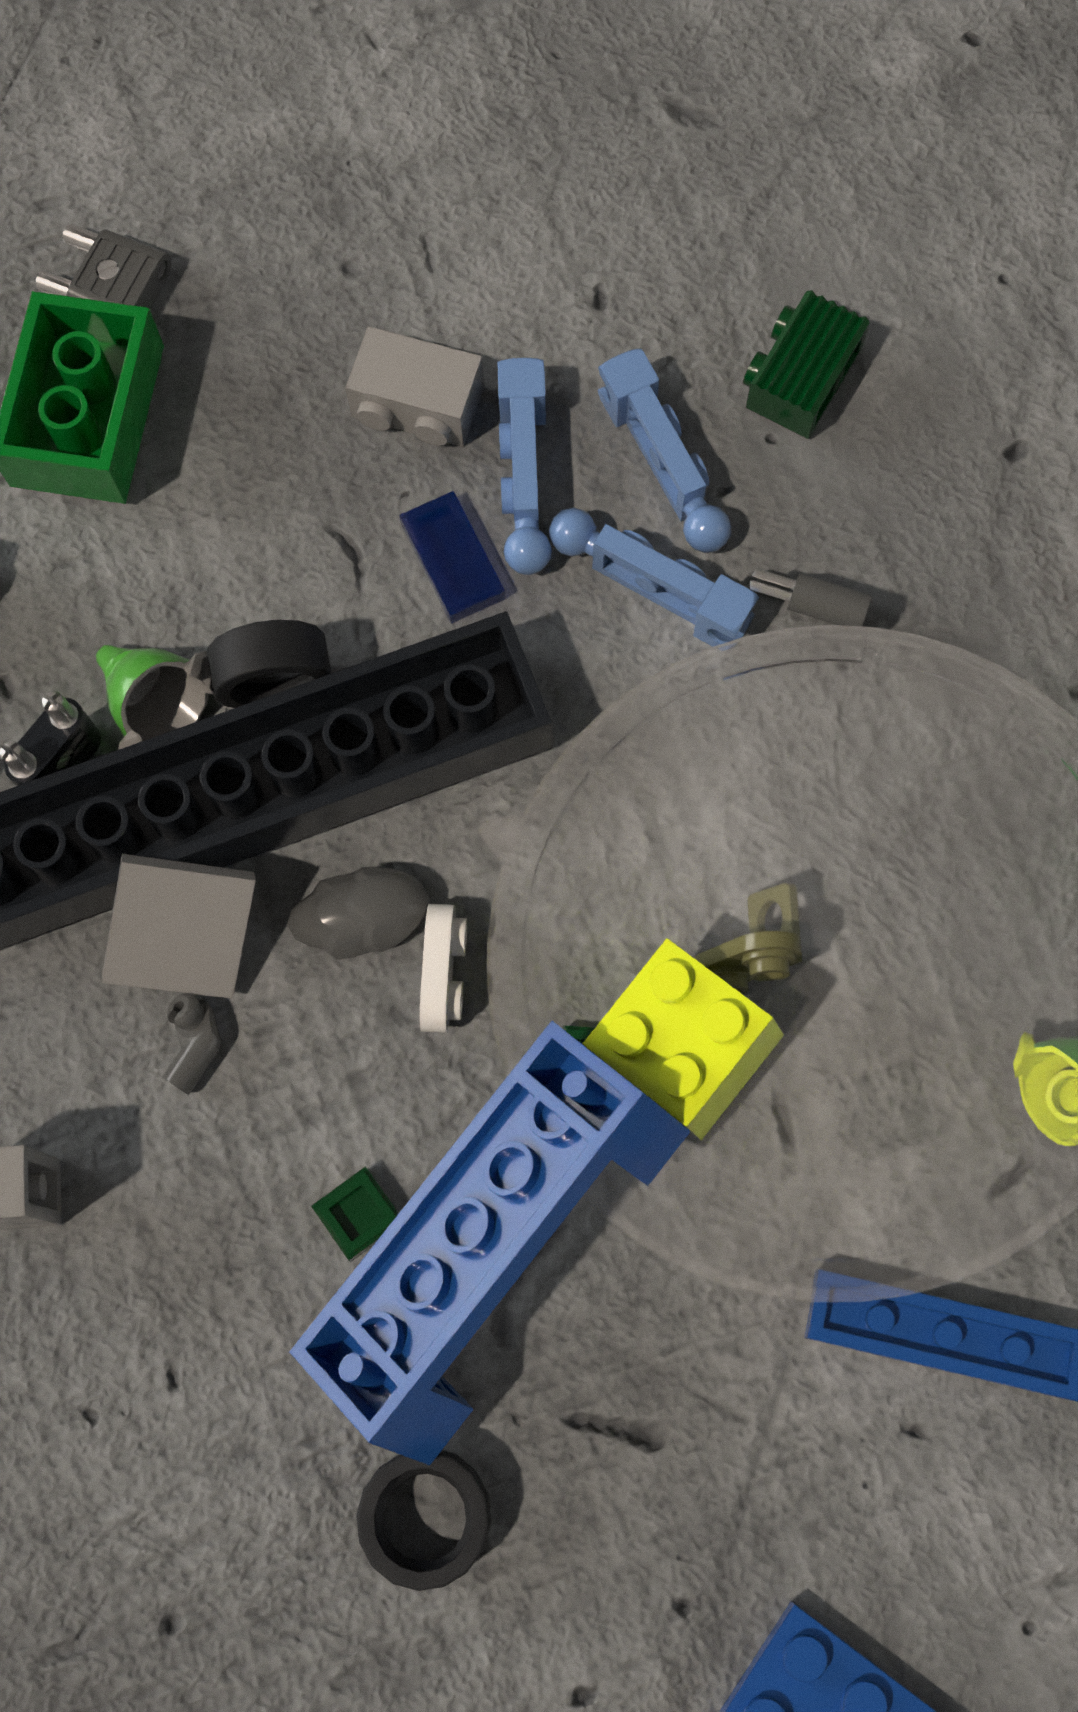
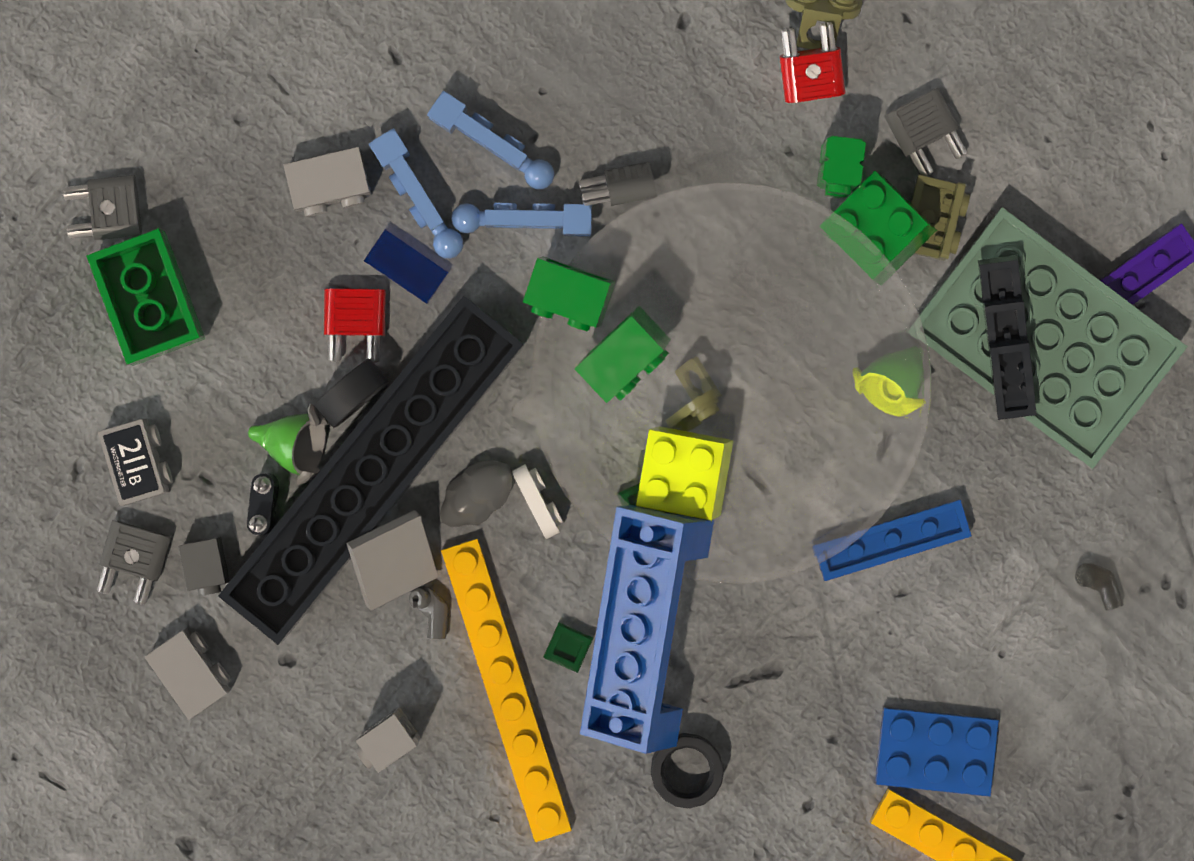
camera: 30 degrees left, 15 degrees up
(225, 1237) = (506, 690): none -> yellow plate
(343, 578) = (354, 314): none -> red piece
(659, 685) = (568, 293): none -> green brick
(690, 805) = (626, 351): none -> green brick
(805, 364) = (539, 41): dark green brick -> none

